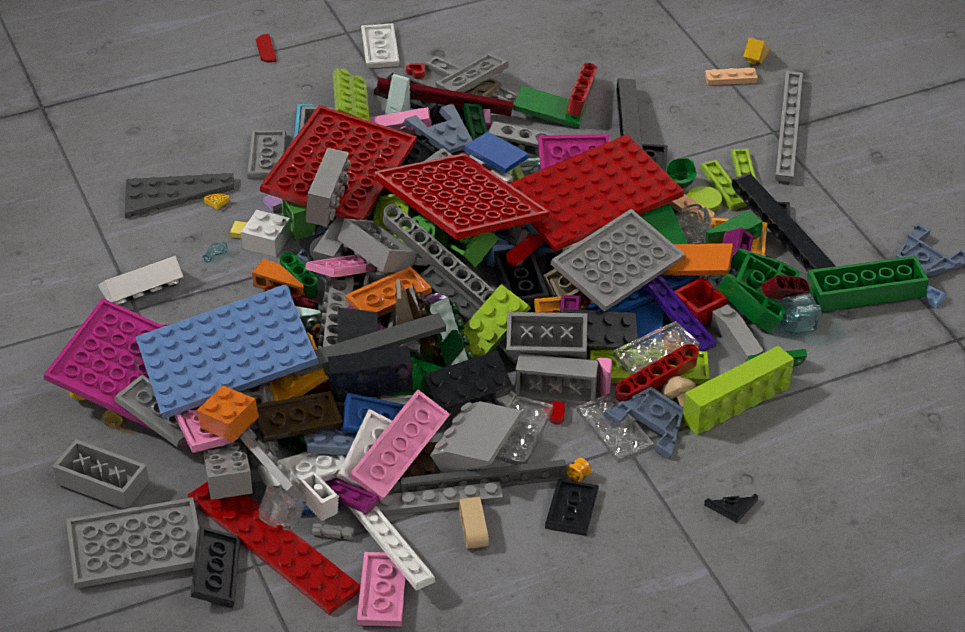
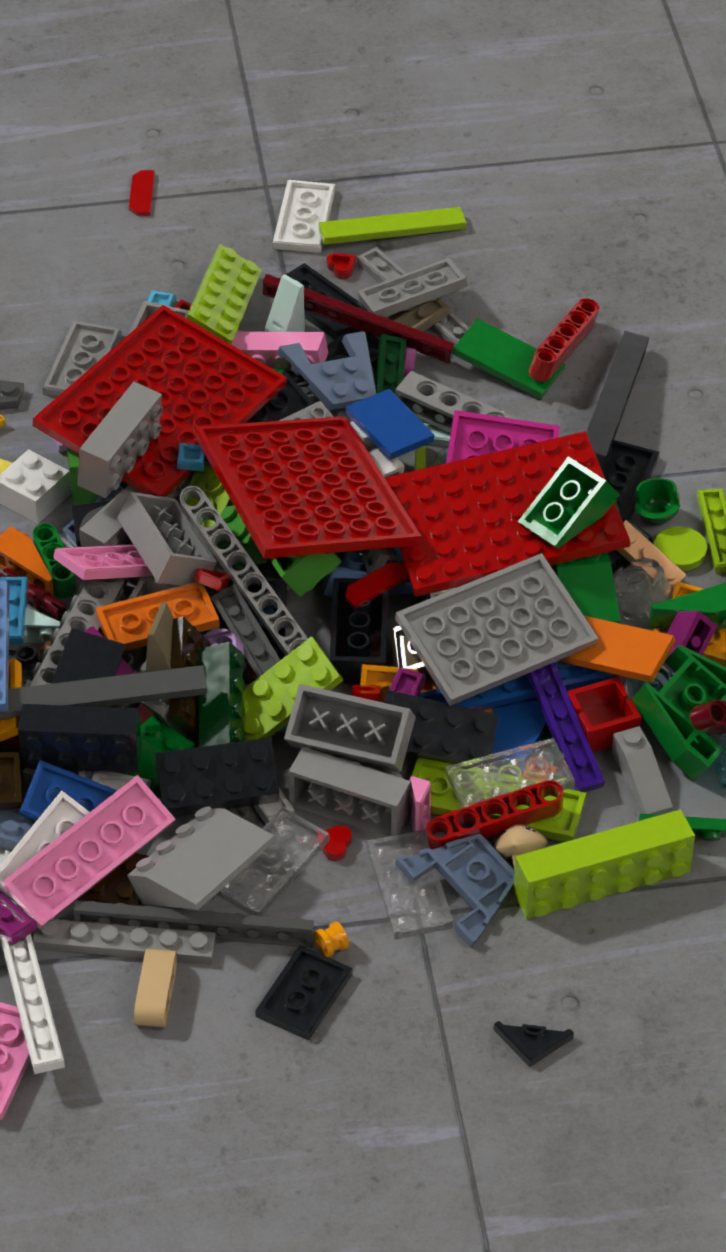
camera: 15 degrees right, 5 degrees up
(374, 192) = (190, 457): none -> dark azure tile
(417, 263) = (212, 579): none -> red tile
(440, 41) = (392, 225): none -> lime tile
(639, 174) = (568, 503): none -> green slope

